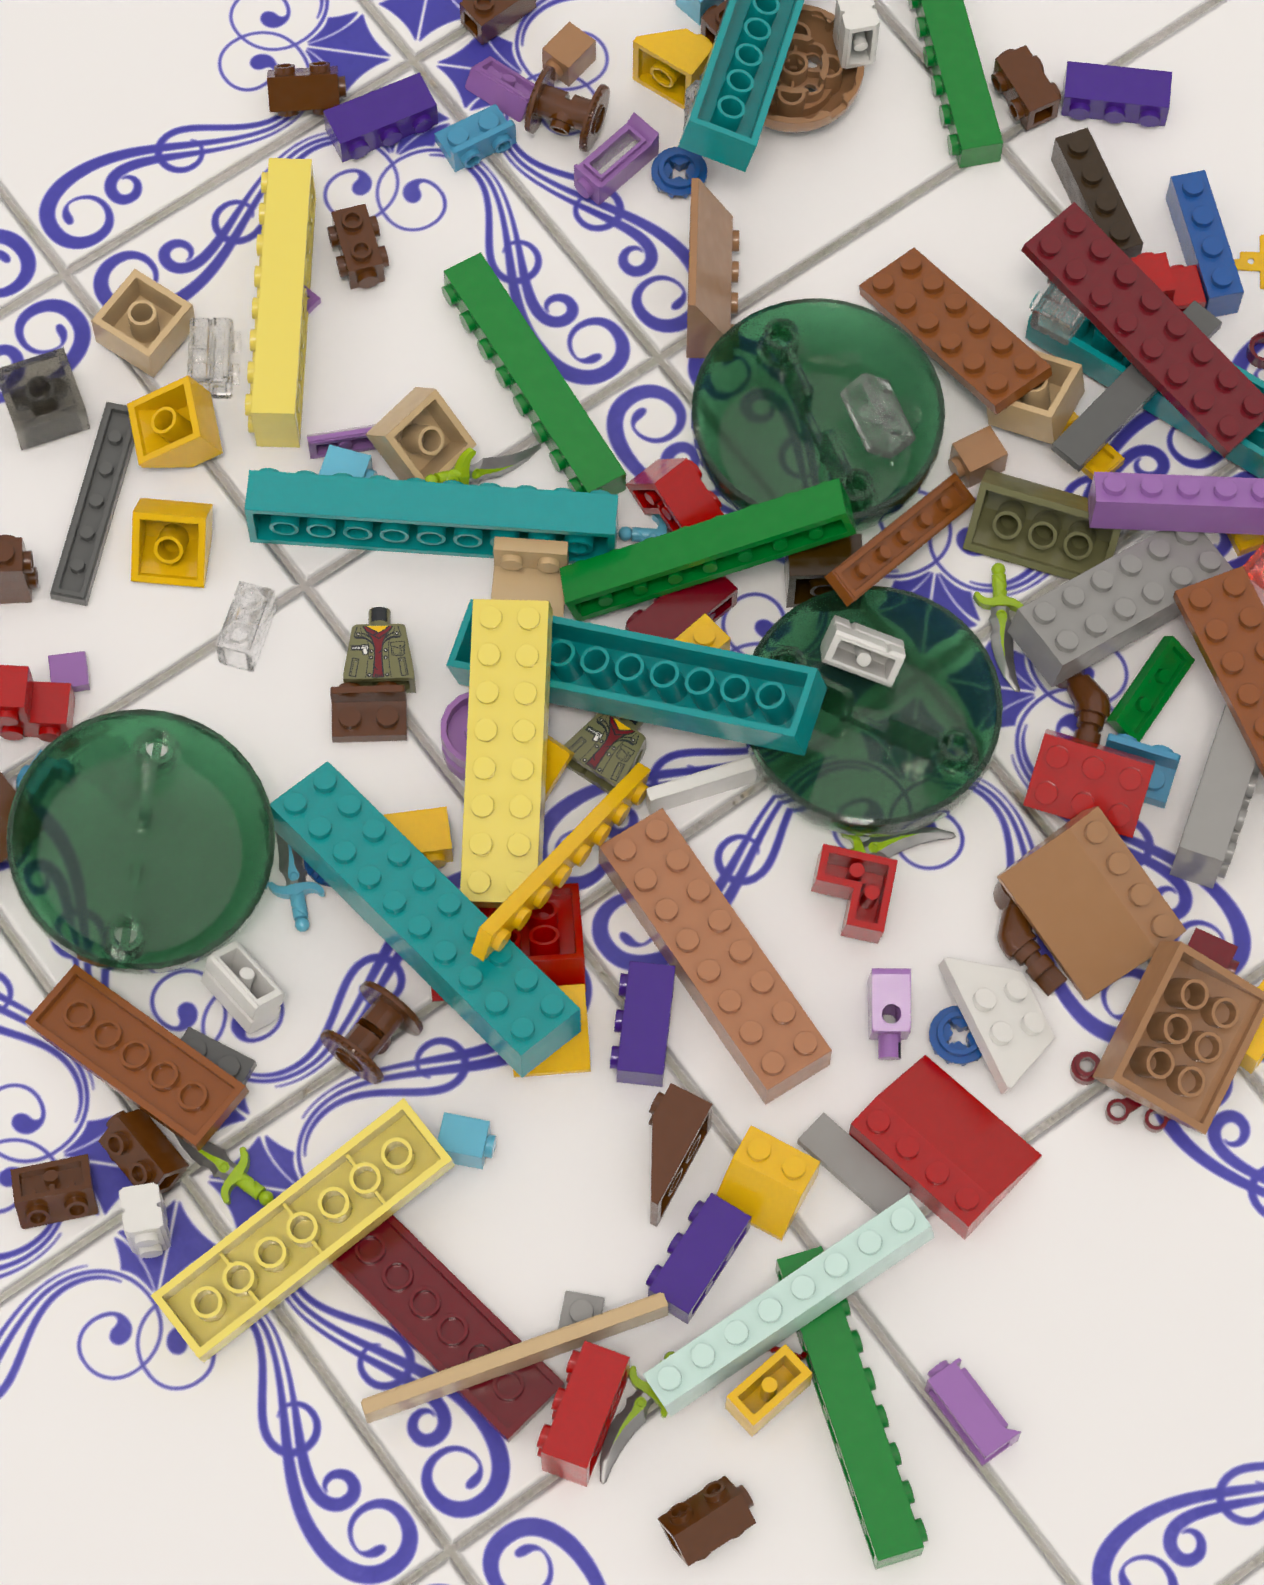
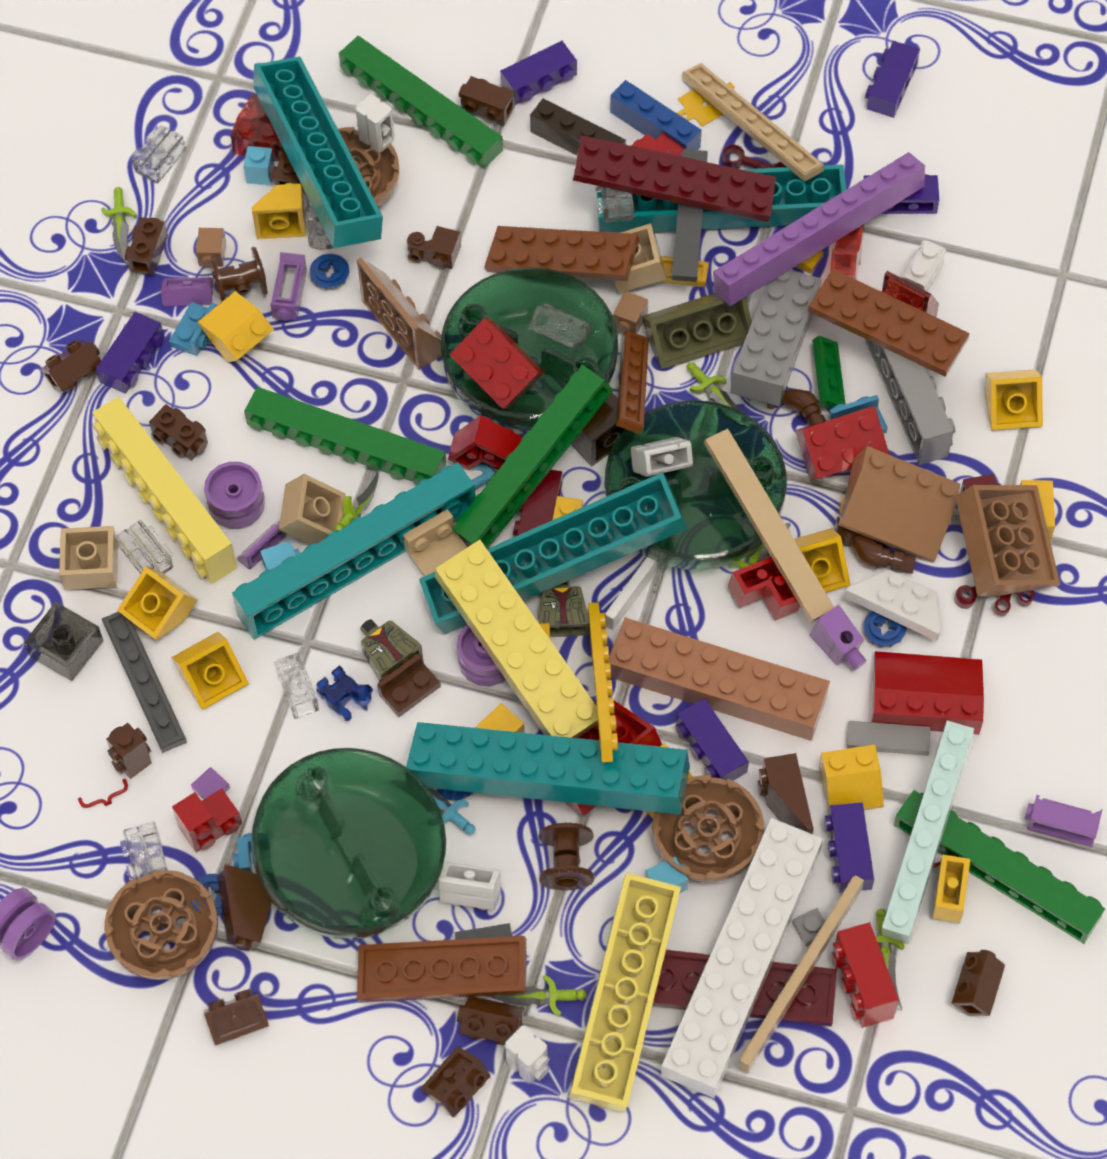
camera: 35 degrees left, 5 degrees down
(292, 668) = (342, 692): none -> clear blue animal
(356, 361) = (234, 494): none -> medium lavender wheel
(465, 1289) = (741, 958): none -> white brick
(514, 165) = (235, 326): none -> yellow slope
(548, 1164) = (737, 815): none -> medium nougat brick
(761, 410) = (497, 363): none -> red brick
(822, 232) = (439, 251): none -> reddish brown brick
(906, 818) = (769, 525): none -> tan tile
(942, 903) = (826, 558): none -> yellow slope

